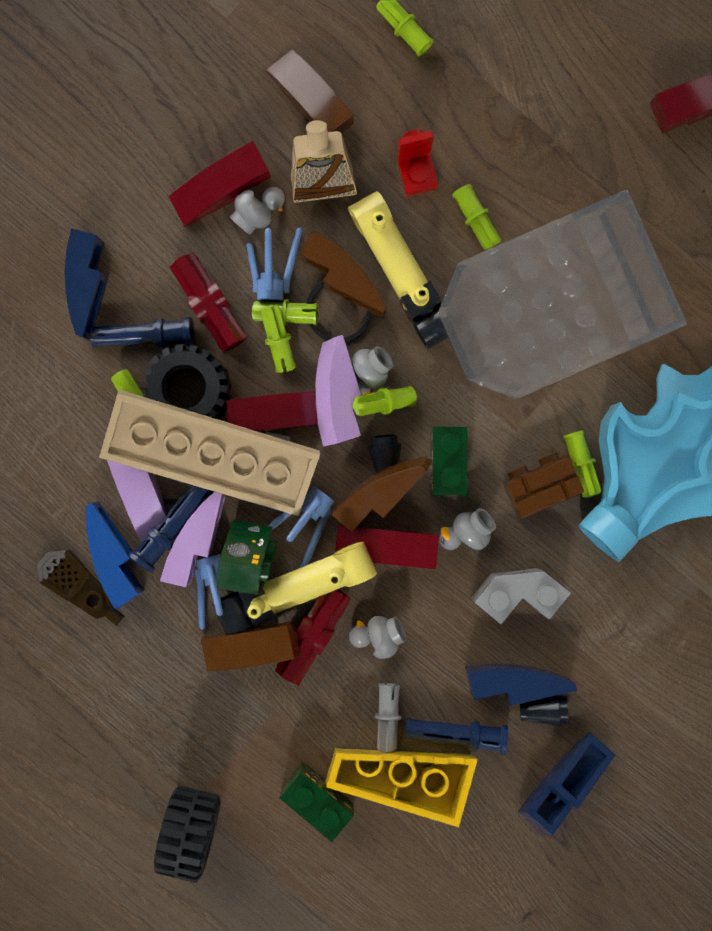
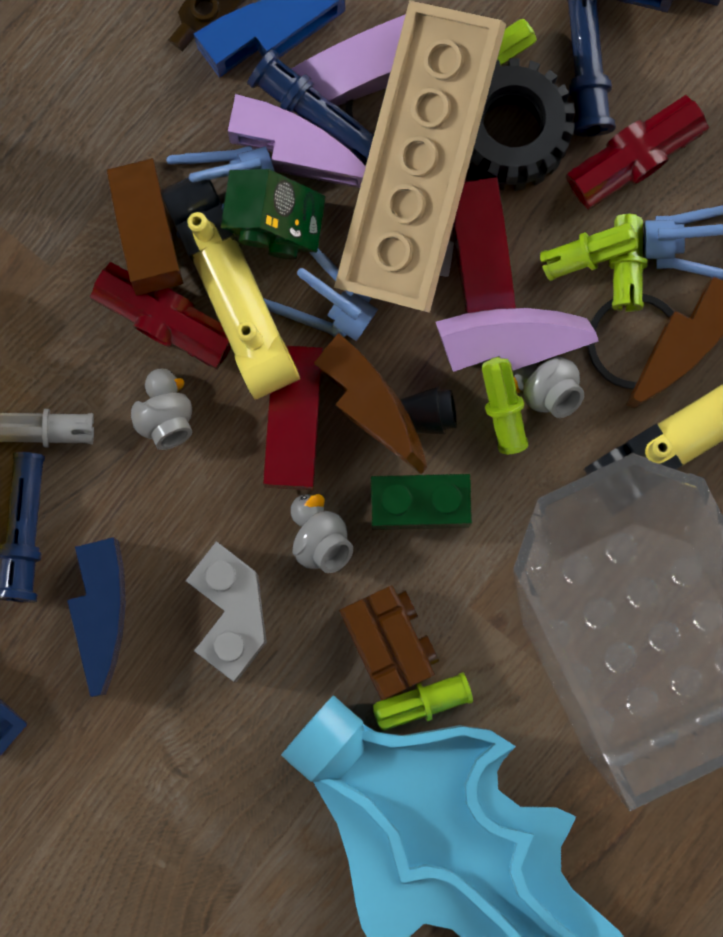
camera: 90 degrees right, 5 degrees down
(546, 711) = (59, 657): black cone -> none

